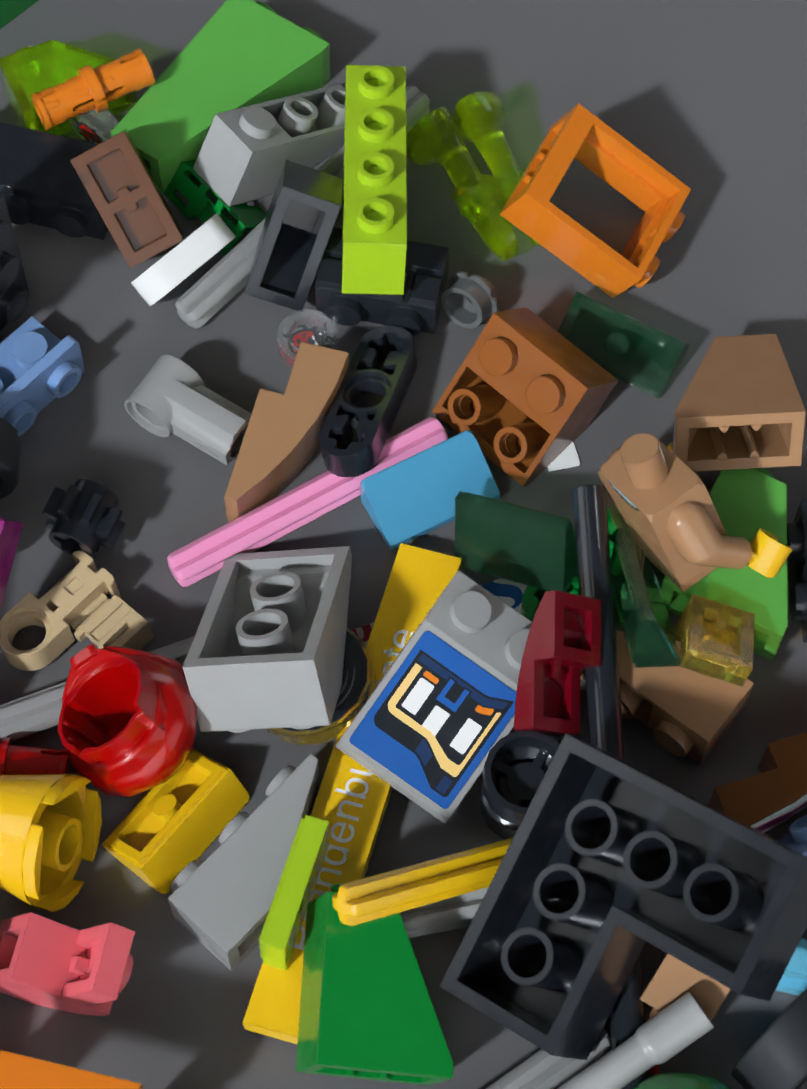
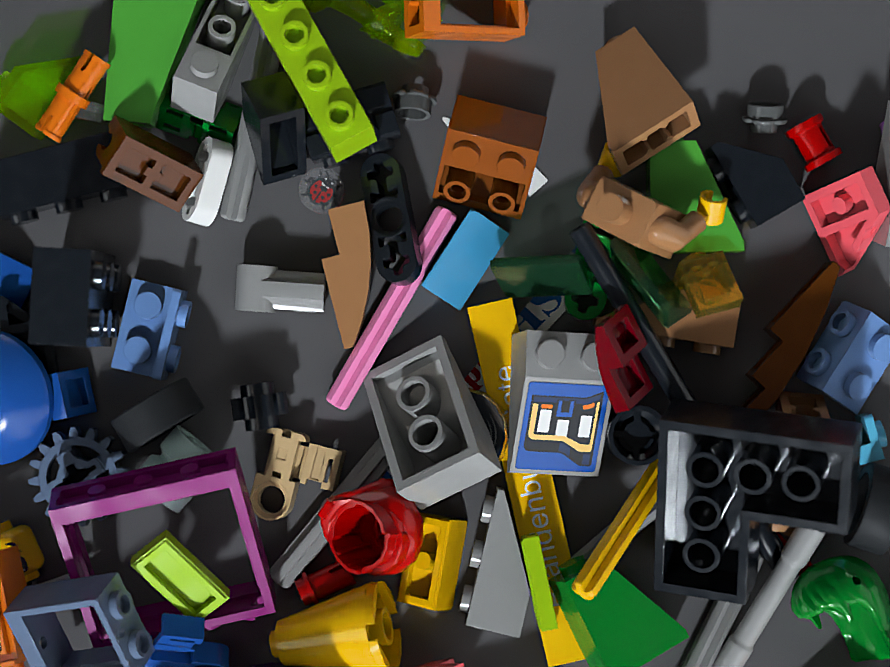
camera: 25 degrees left, 25 degrees up
(623, 344) = (529, 76): clear green slope -> none

